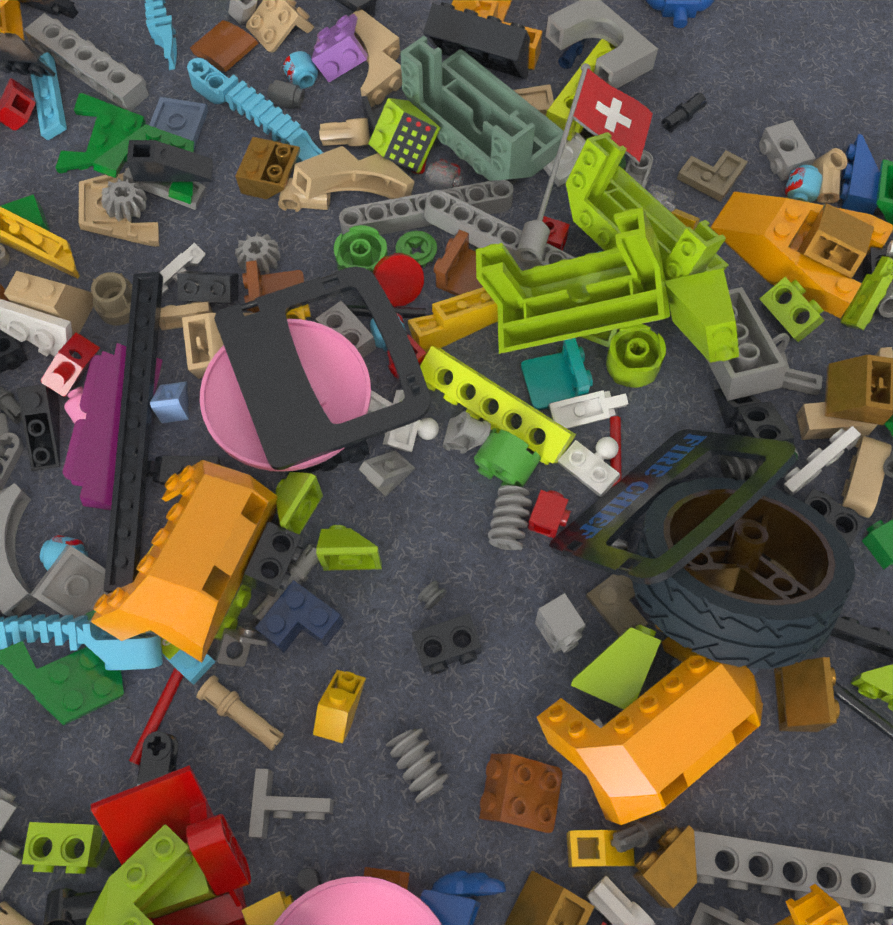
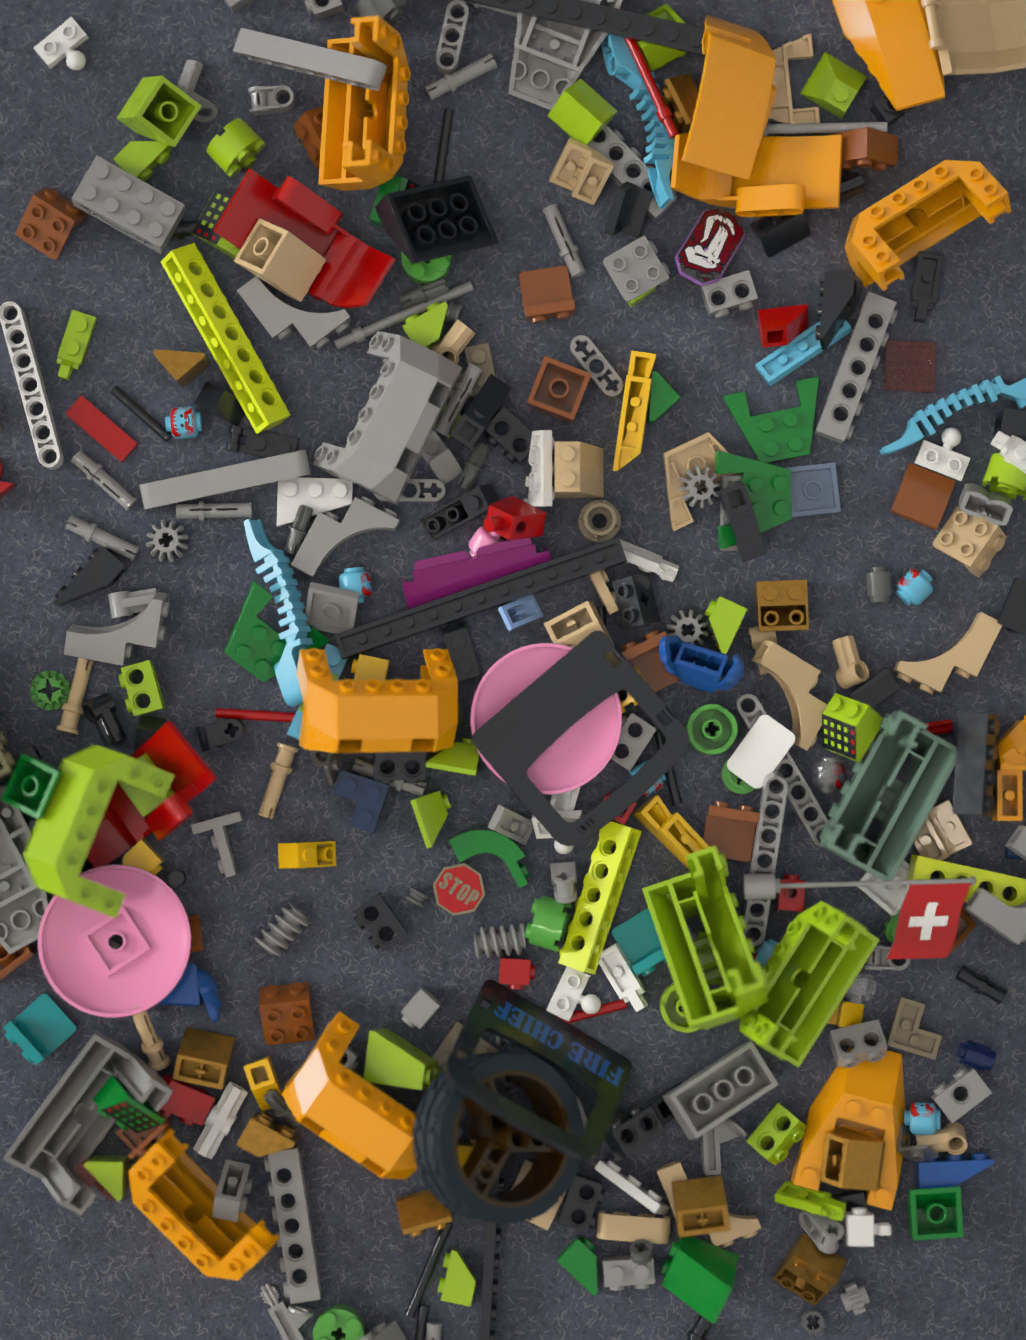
camera: 70 degrees right, 20 degrees up
(109, 28) = (910, 366): none -> clear red tile
(196, 25) = (943, 458): none -> white plate
(221, 89) = (840, 576): medium azure piece -> none
(263, 213) = (723, 622): none -> lime slope
(295, 238) = (699, 666): none -> blue torso
(338, 49) = (946, 617): medium lavender bracket -> none
(399, 218) = (760, 751): none -> white sticker
(399, 278) = (697, 772): red tile -> none
(403, 492) = (491, 842): none -> green arch
(438, 546) = (459, 889): none -> piece
(705, 313) = (721, 1061): lime slope -> none
(718, 208) = (855, 1037): none -> light grey brick
(751, 129) = (976, 1055): none -> clear blue brick
(840, 190) = (910, 1152): none -> flat silver bracket

